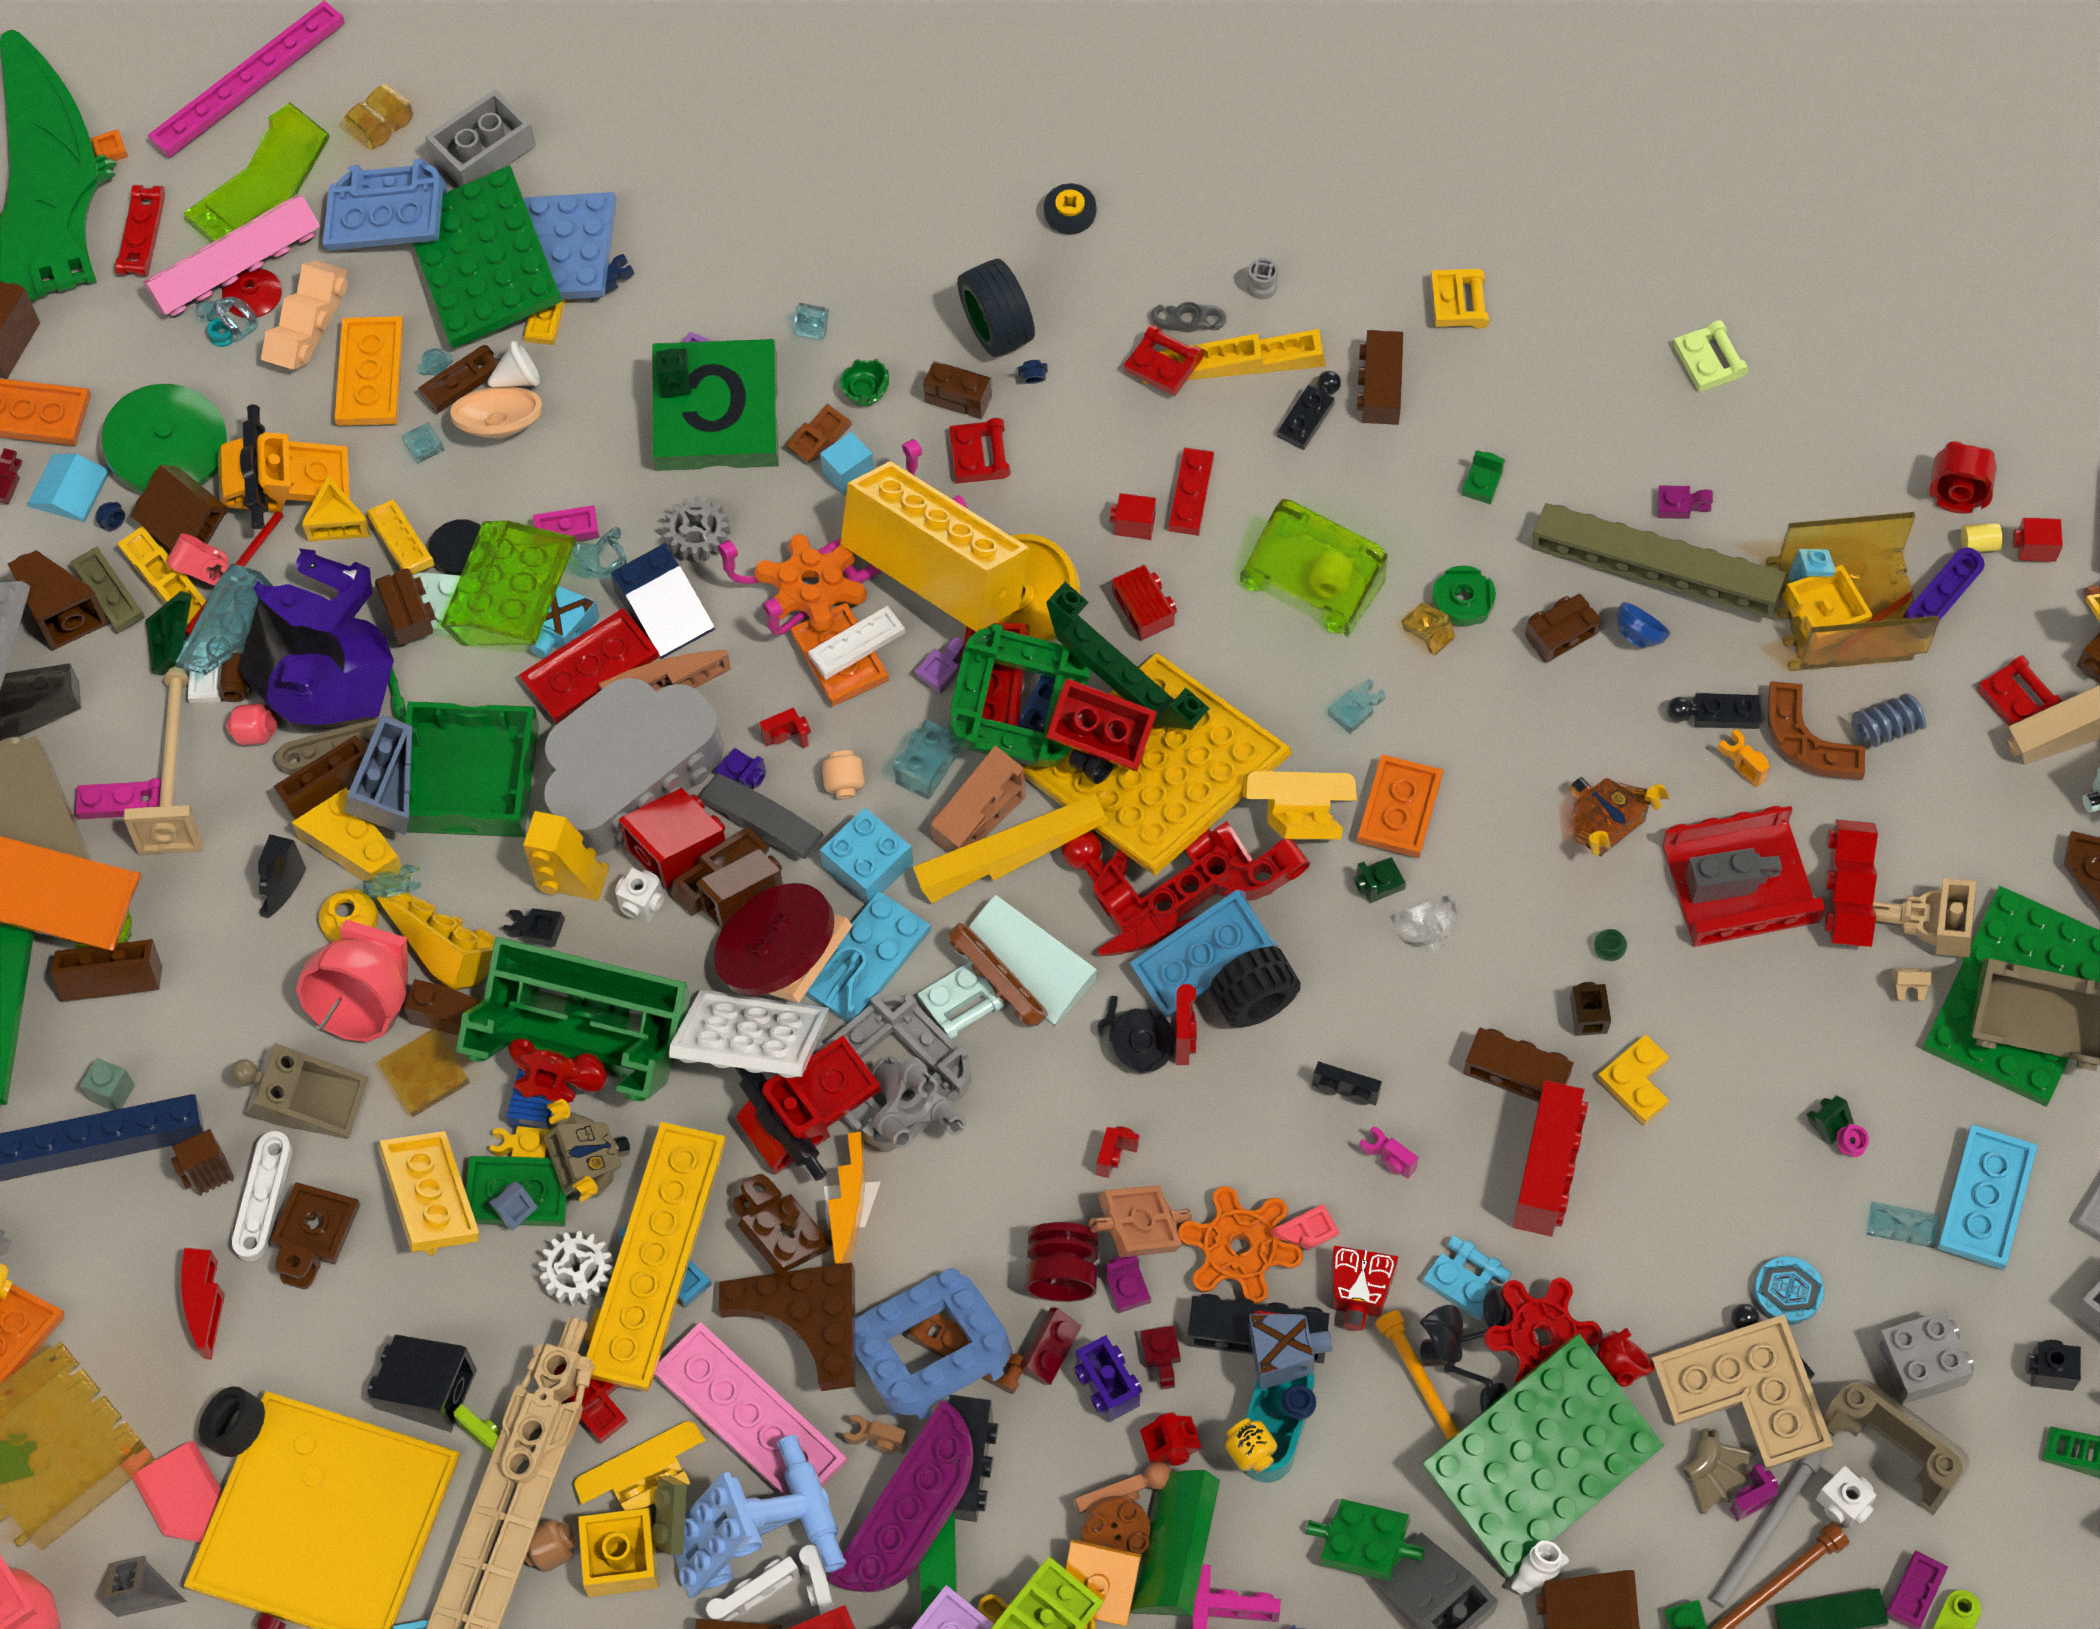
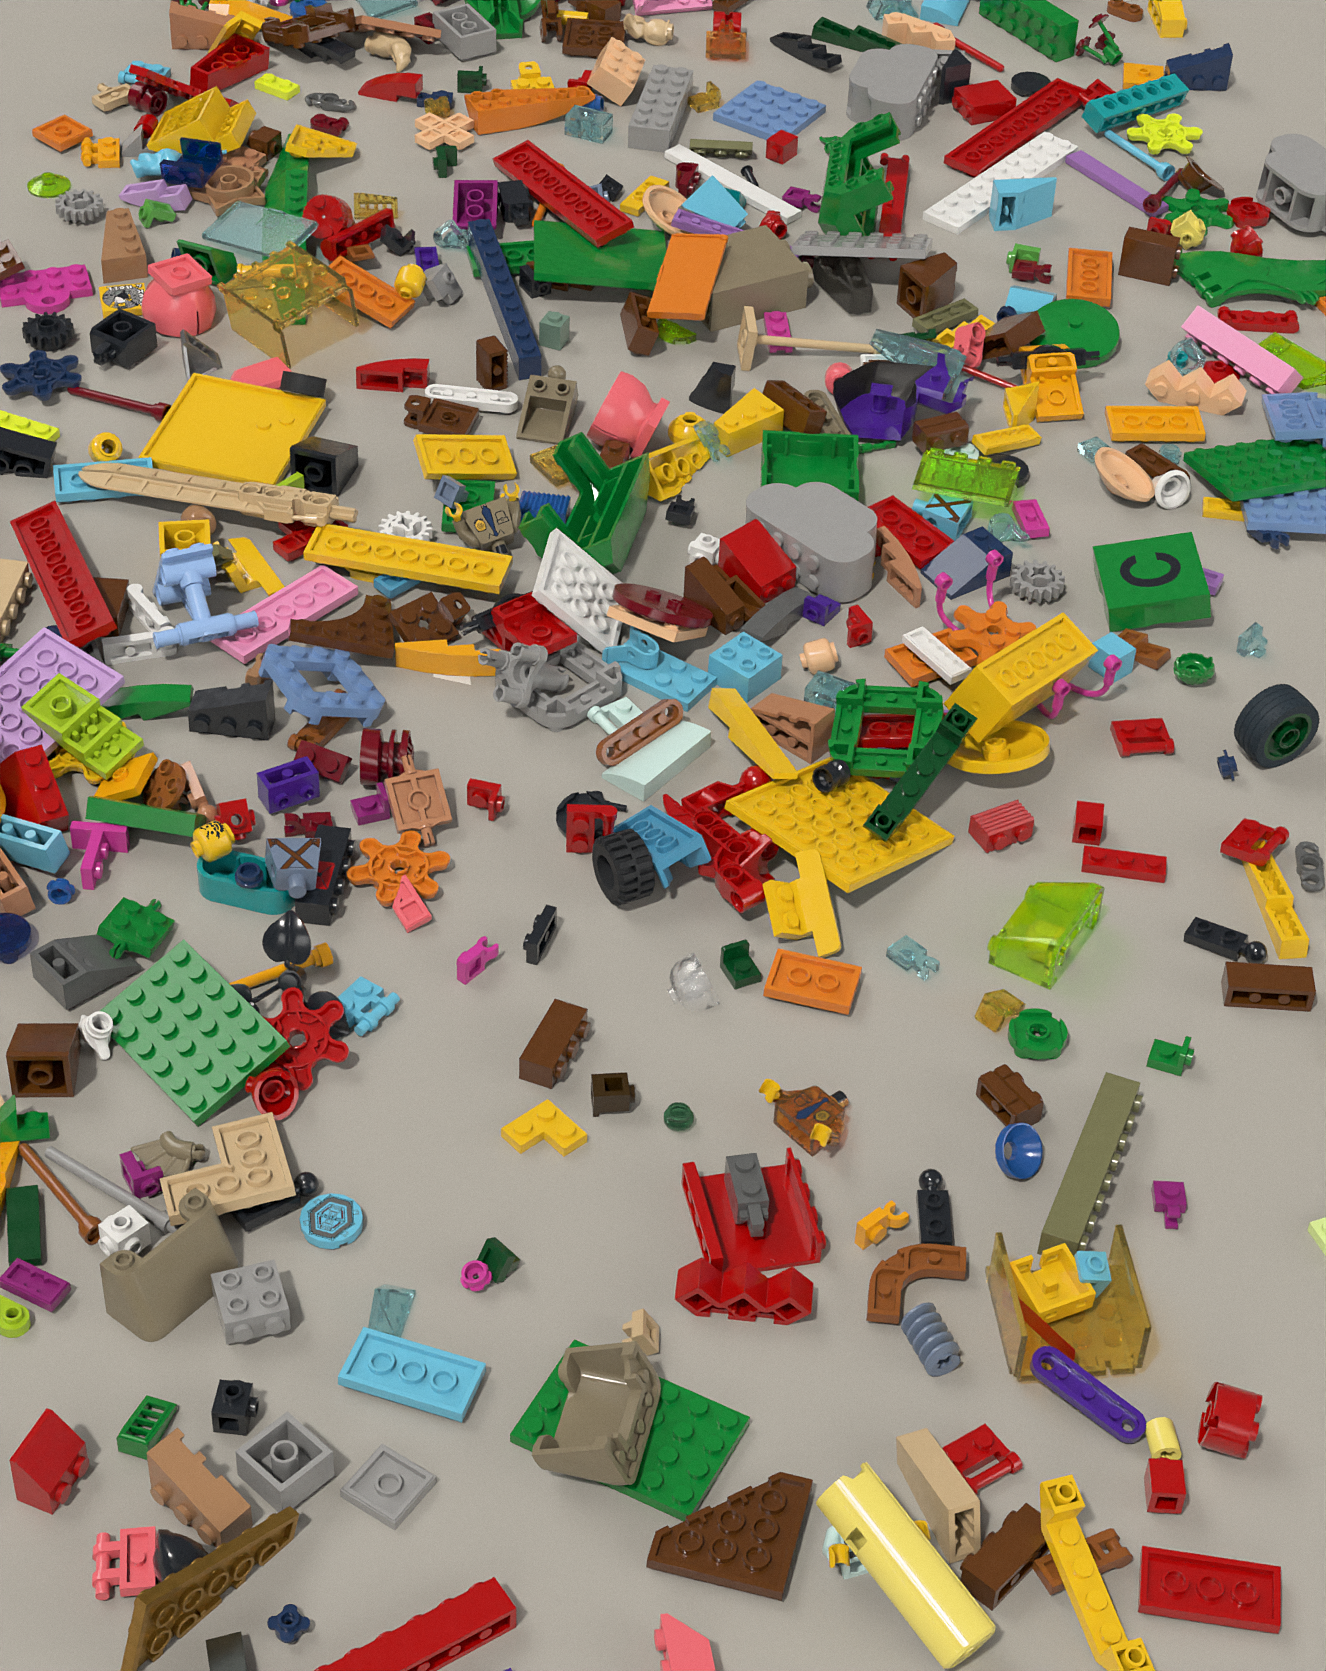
camera: 85 degrees right, 20 degrees down
(383, 778) = (786, 412): sand blue wedge -> none
(550, 1070) = (557, 493): red animal -> none
(561, 860) = (728, 496): yellow wedge -> none
(673, 372) = (1165, 536): dark green bracket -> none
(911, 1506) = (196, 671): magenta plate -> none
(957, 389) = (1197, 719): reddish brown brick -> none
(1100, 724) = (857, 766): red slope -> none
(1360, 1283) = (358, 935): red torso -> none
(1551, 1159) = (459, 1046): red brick -> none
(1937, 916) = (707, 1361): tan brick -> none

